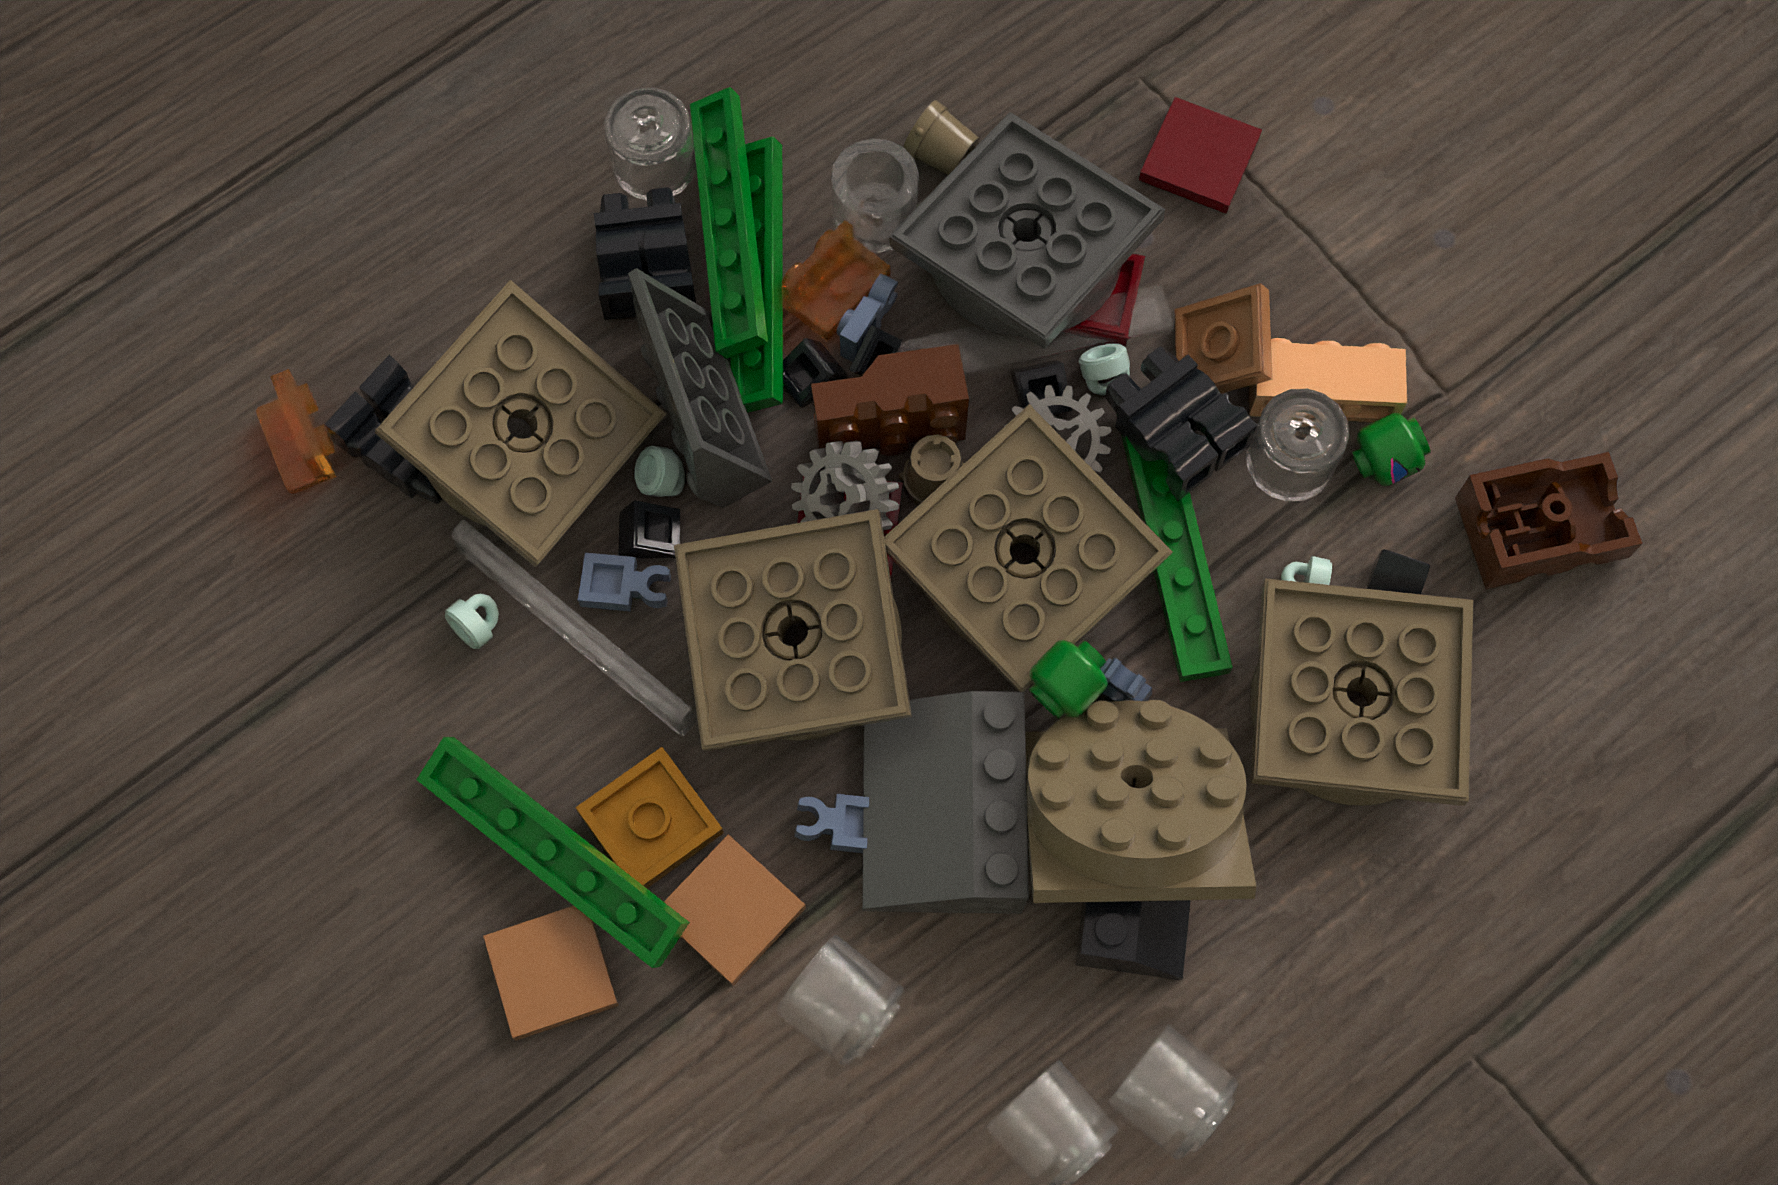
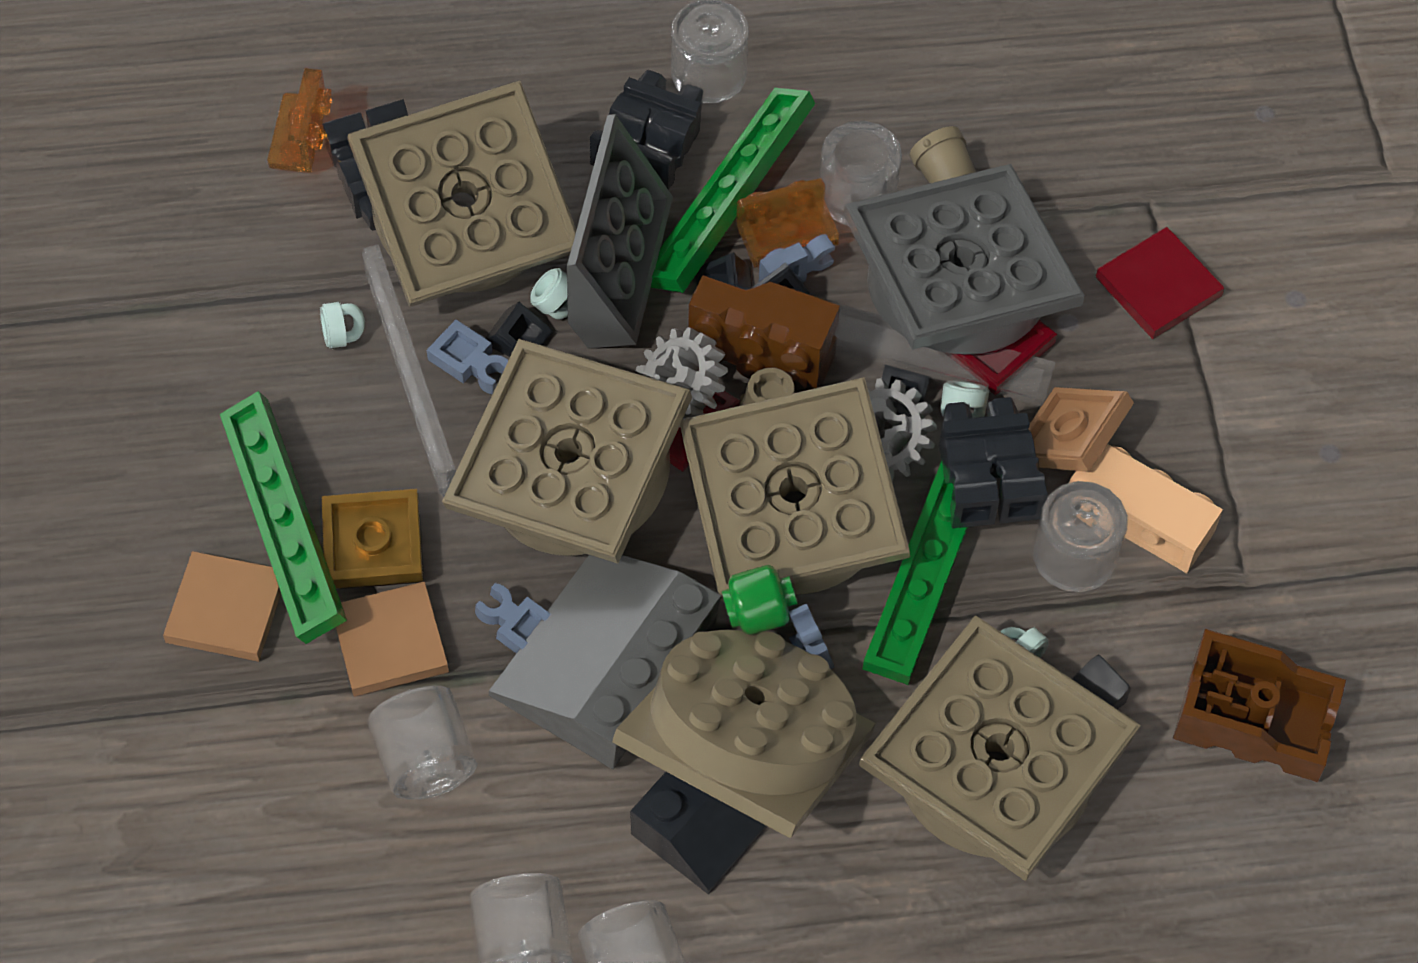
camera: 30 degrees right, 10 degrees down
(728, 224) = (729, 137): green plate -> none
(1391, 449) = (1161, 584): green head -> none

